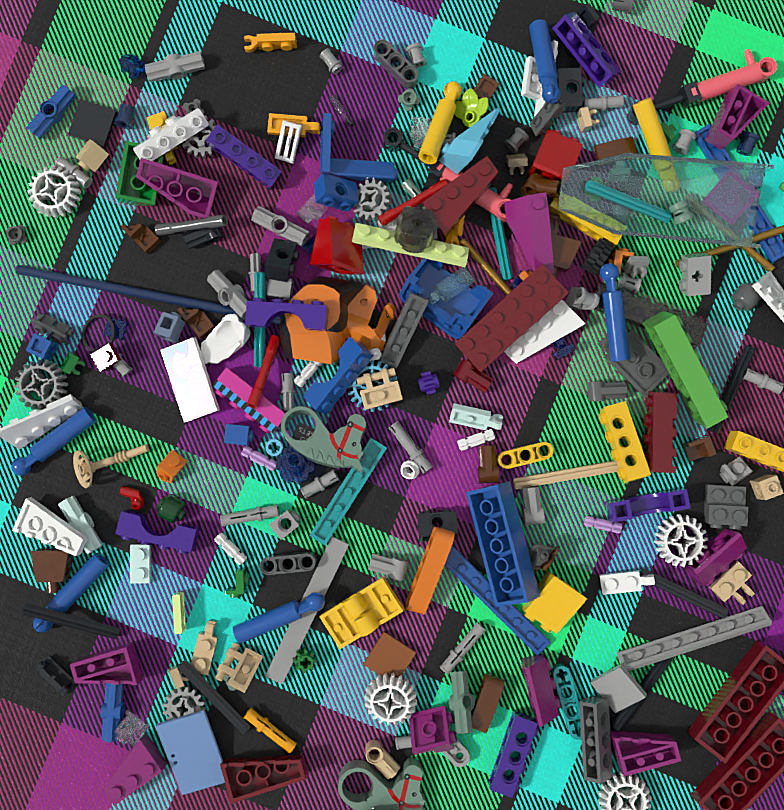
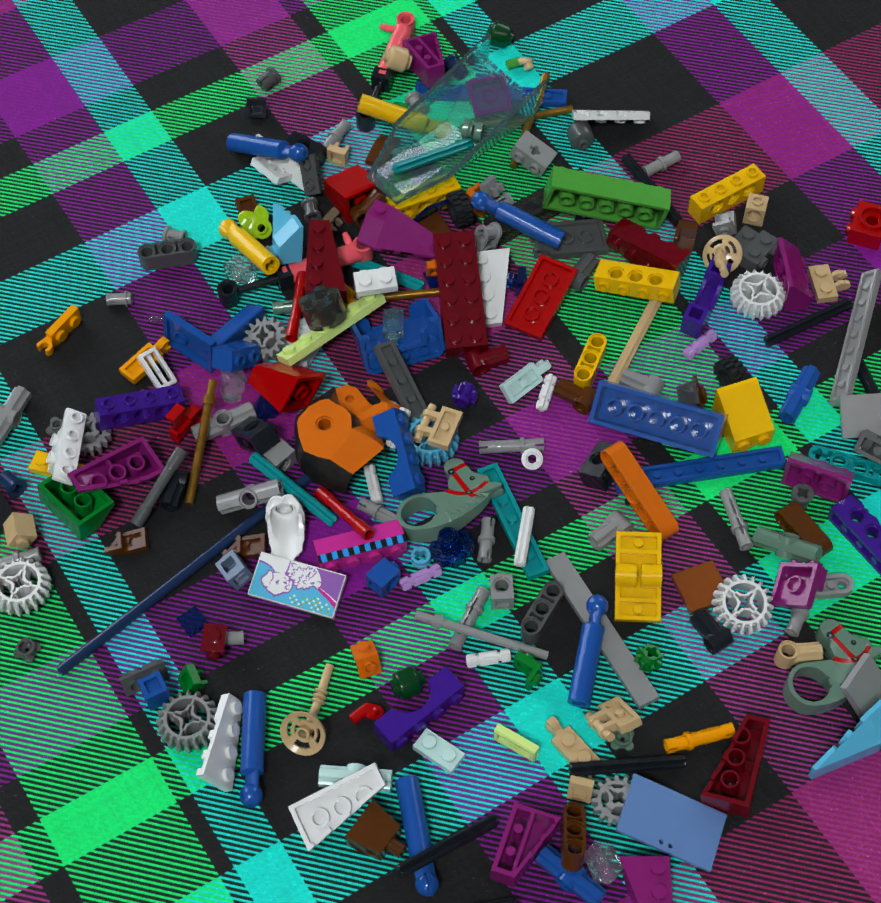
camera: 55 degrees left, 30 degrees down
(87, 324) = (169, 625): black piece -> none
(123, 700) = (573, 836): none -> reddish brown beam
(225, 500) = (438, 621): none -> light grey bar
(252, 197) = (183, 420): none -> red piece
(255, 265) = (246, 469): light grey axle -> none
(262, 313) = (329, 426): dark purple arch -> none
(279, 206) = (208, 402): none -> pearl gold bar
(336, 512) = (524, 536): none -> white axle
(355, 691) = (714, 636): none -> black piece
(409, 93) = (205, 264): sand green plate -> none
(472, 247) = (375, 281): none -> white bracket
(514, 691) = (802, 494): none -> dark grey bush
(557, 379) = (541, 297): none -> red plate
(574, 236) = (429, 210): none -> clear blue piece
(585, 570) = (730, 370): none -> black tyre
(586, 49) = (283, 120): dark purple brick -> none
(607, 628) = (799, 394): none -> blue piece
(624, 582) = (765, 355): white plate -> none
(698, 491) = (722, 255): none -> tan dish
(714, 94) = (397, 58): none -> tan head

